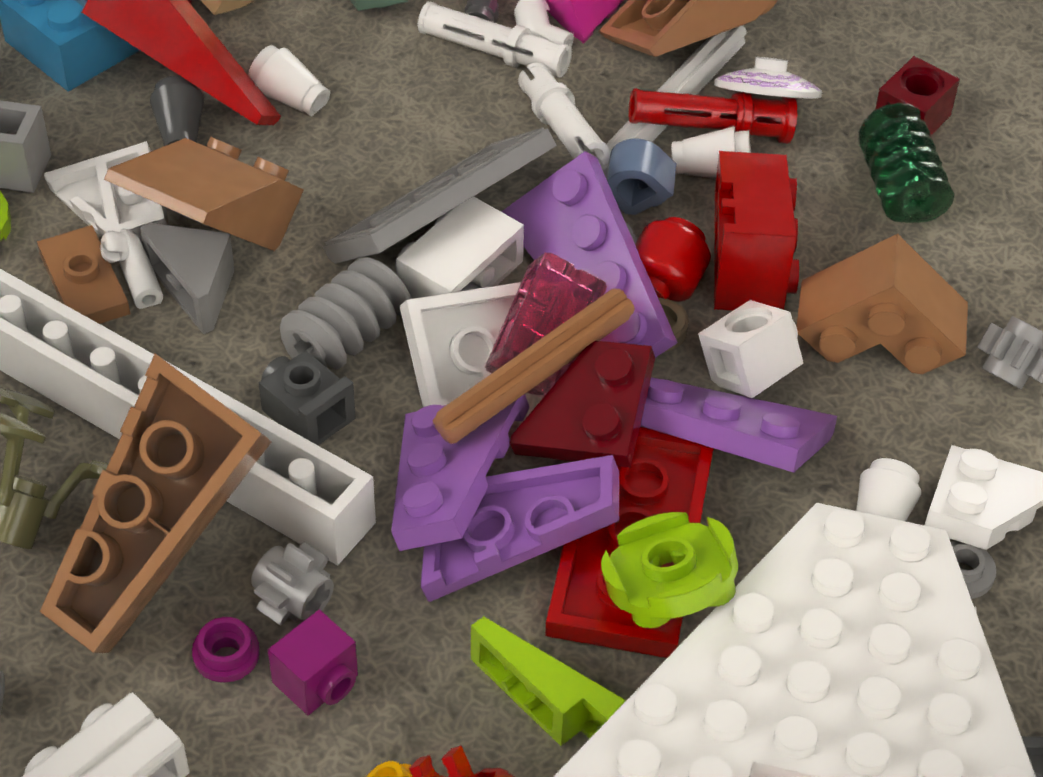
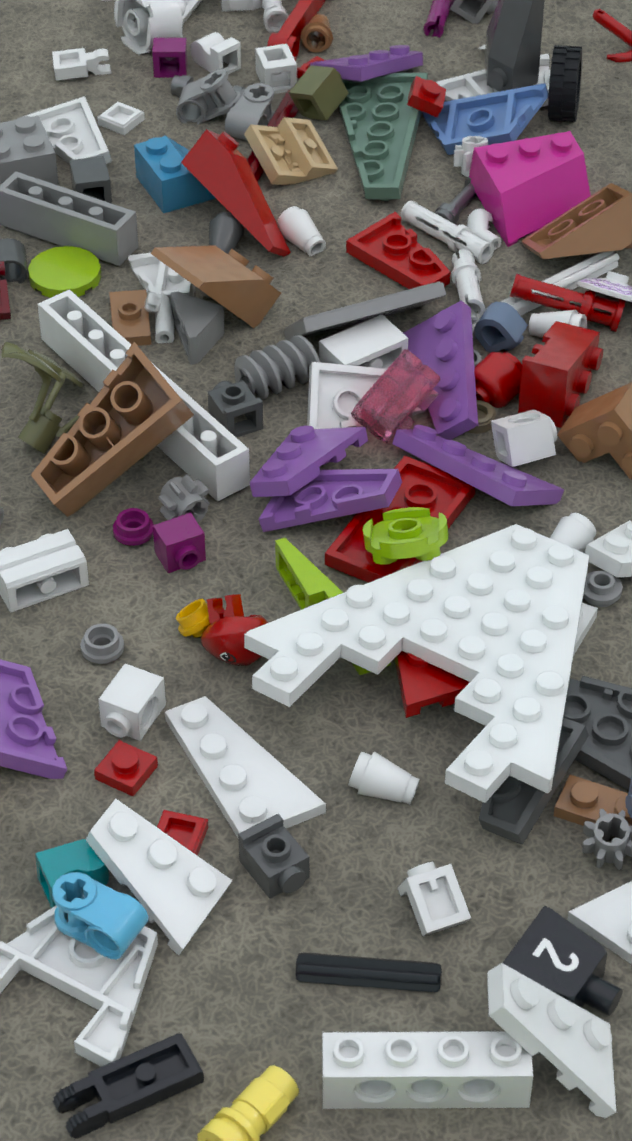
camera: 20 degrees right, 5 degrees down
(442, 91) = (397, 254): none -> red wing
(532, 366) = (374, 412): medium nougat axle -> none
(591, 407) = (403, 444): dark red wing -> none

